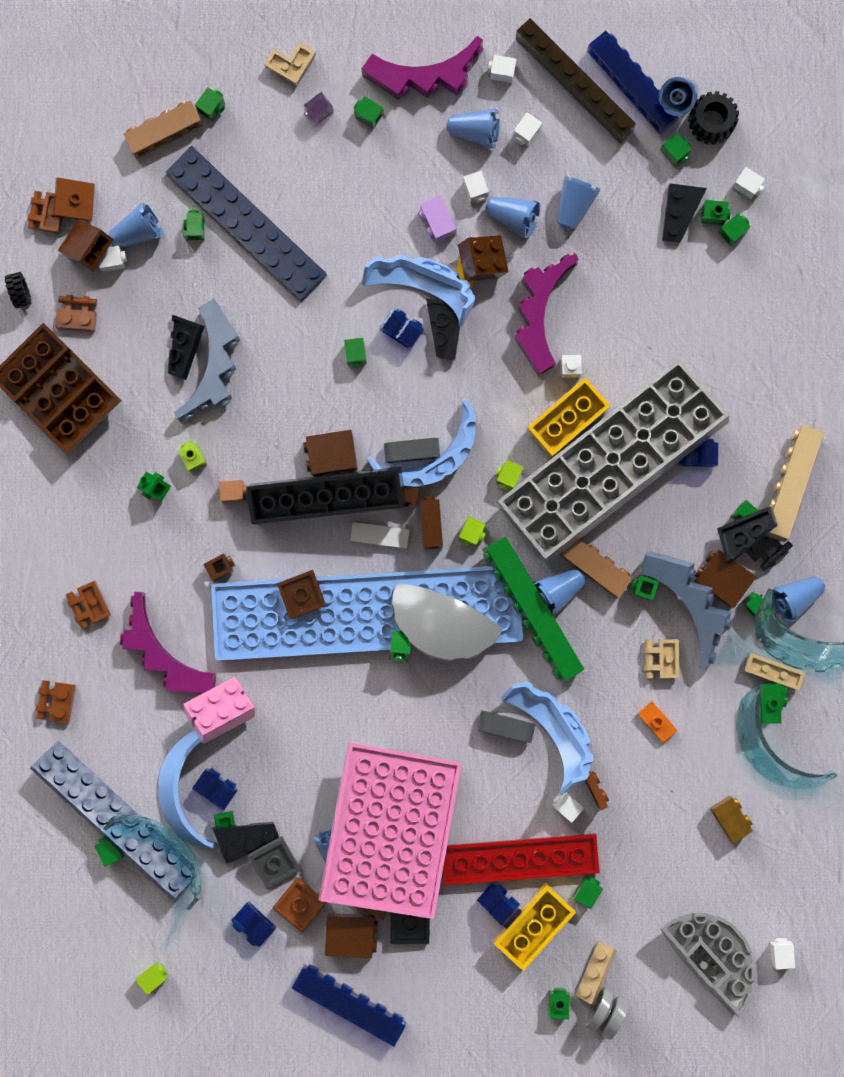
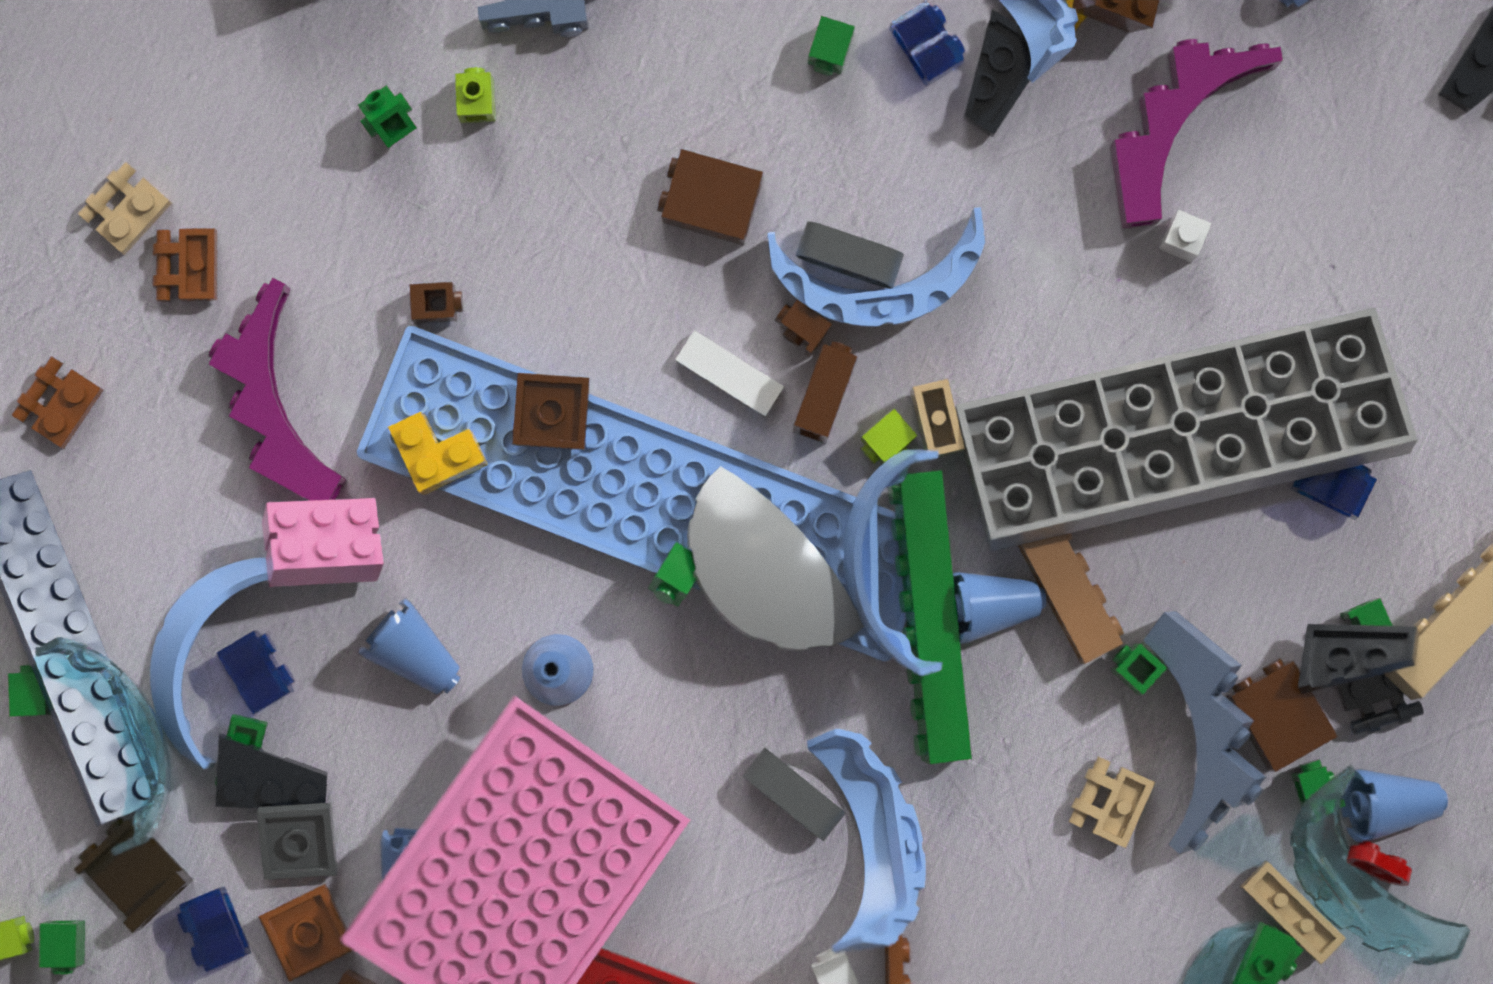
camera: 20 degrees right, 0 degrees up
(50, 592) = (132, 215): none -> tan plate
(182, 967) = (62, 945): none -> green brick
(204, 918) = (137, 880): none -> dark brown panel
(232, 491) = (516, 185): nougat brick -> none
(257, 645) = (432, 462): none -> yellow brick
(286, 742) = (412, 650): none -> medium blue cone
(326, 495) = (670, 263): black brick -> none
(371, 715) = (573, 674): none -> medium blue cone
(486, 595) = (862, 559): none -> light blue windscreen
(491, 511) = (937, 418): none -> tan brick
(508, 475) = (994, 371): lime brick -> none
(568, 417) = (1140, 320): yellow brick -> none
(657, 721) = (1054, 905): orange plate -> none
(810, 628) = (1387, 868): none -> red plate

